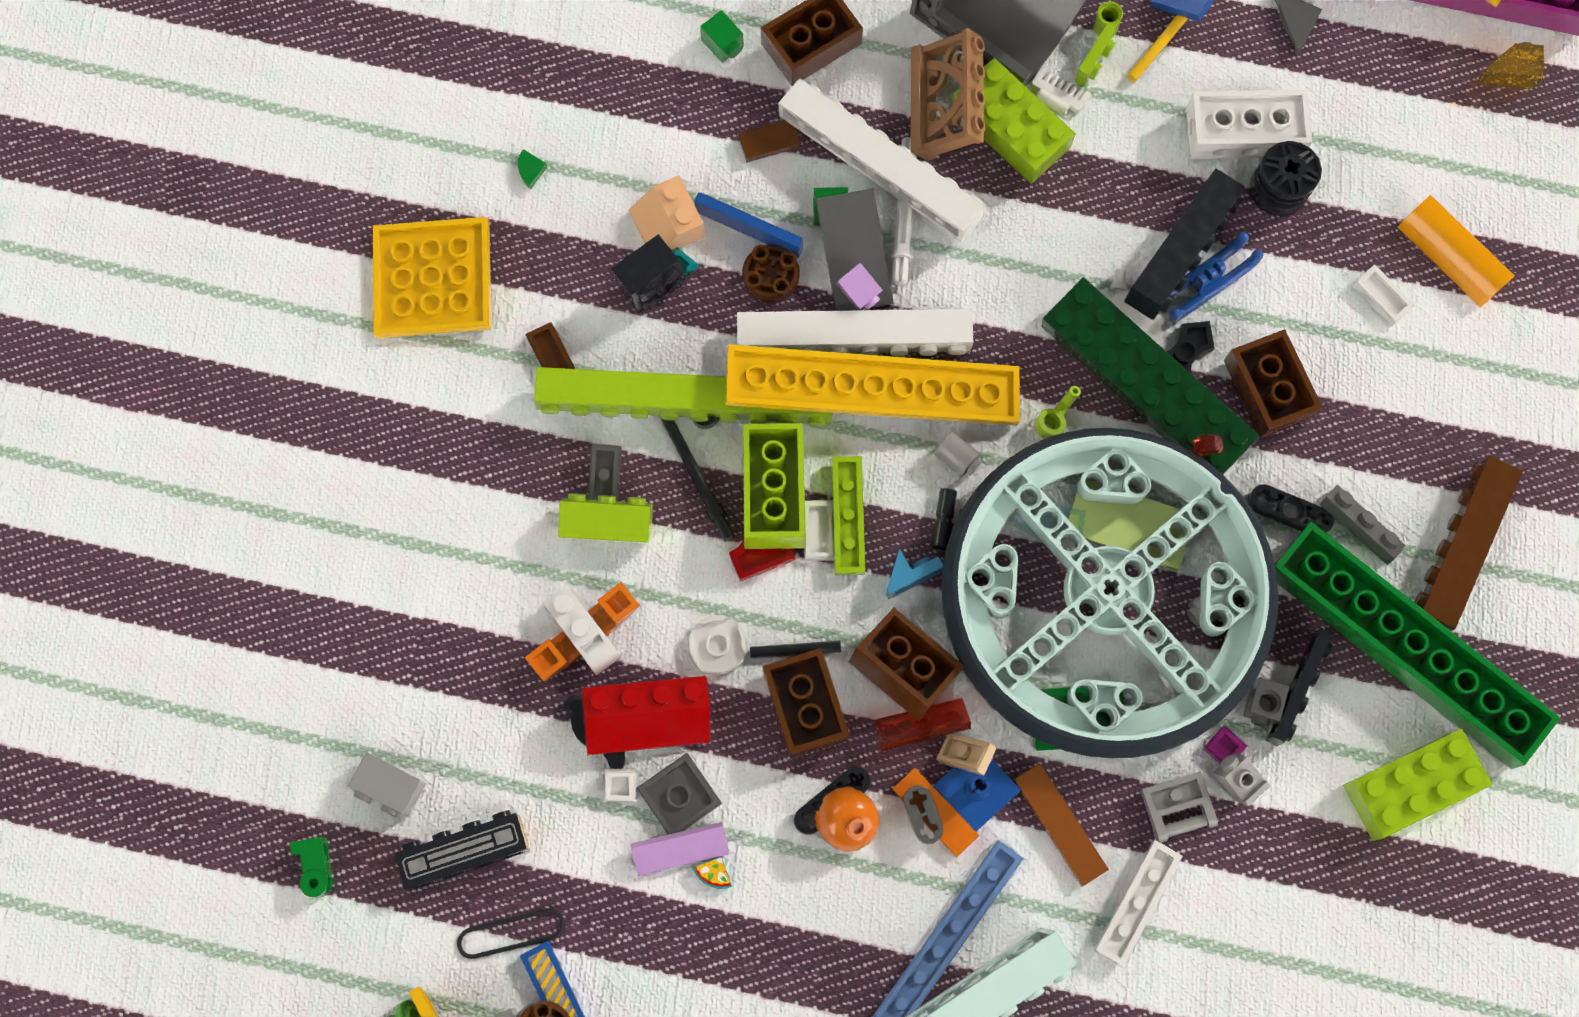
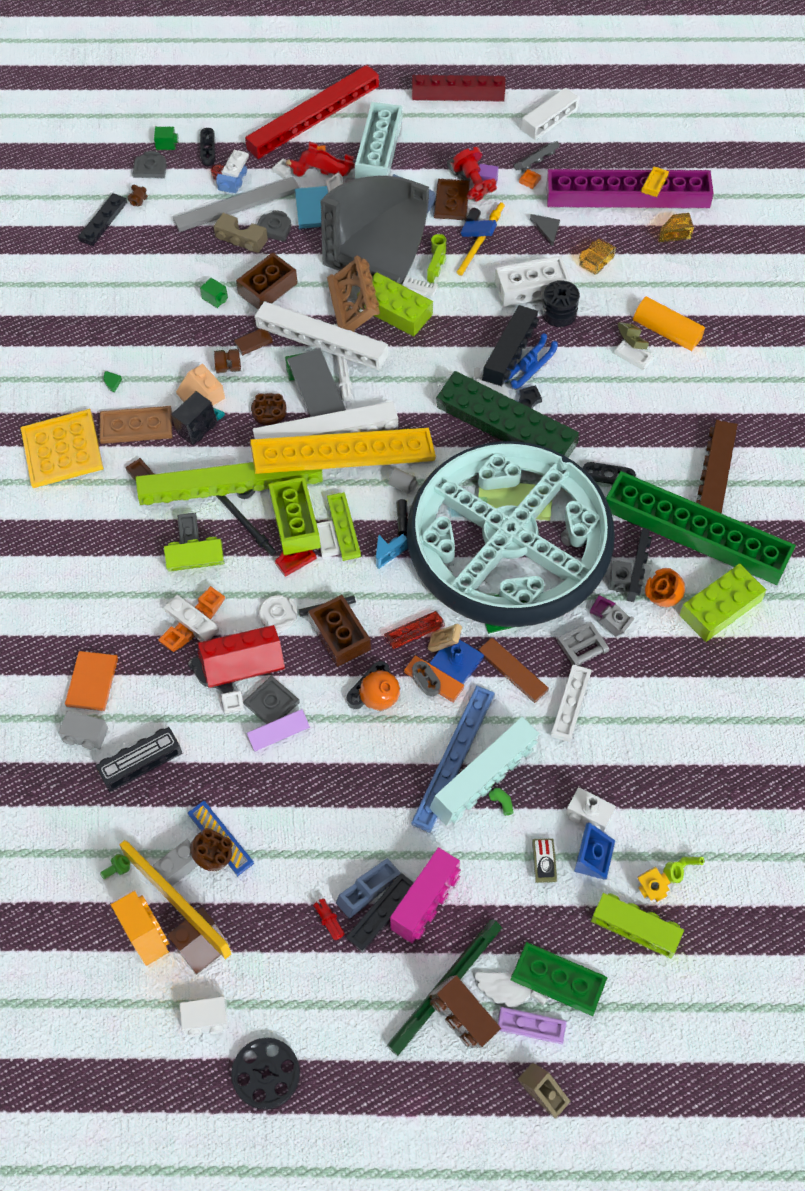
camera: 10 degrees left, 15 degrees down
(315, 865) = (46, 791): green leg -> none
(413, 700) = (91, 681): none -> orange tile
(508, 920) = (175, 796): black piece -> none
(555, 257) = (135, 424): none -> medium nougat tile
(713, 874) = (302, 741): tile -> none
(720, 173) = (221, 363): none -> reddish brown wheel
(747, 224) = (249, 384): blue tile -> none
(860, 287) = (323, 401): lavender brick -> none
(906, 664) = (396, 595): reddish brown brick -> none
(1055, 417) = (453, 450): lime plate -> none
(1207, 444) = (549, 440): clear red tile -> none
(1272, 383) = (580, 407): reddish brown brick -> none
(1331, 743) = (665, 588): none -> orange cylinder
(1362, 524) = (653, 471): dark grey plate -> none
(1367, 95) = (597, 256): none -> clear yellow brick
(1387, 257) = (632, 335): none -> olive slope

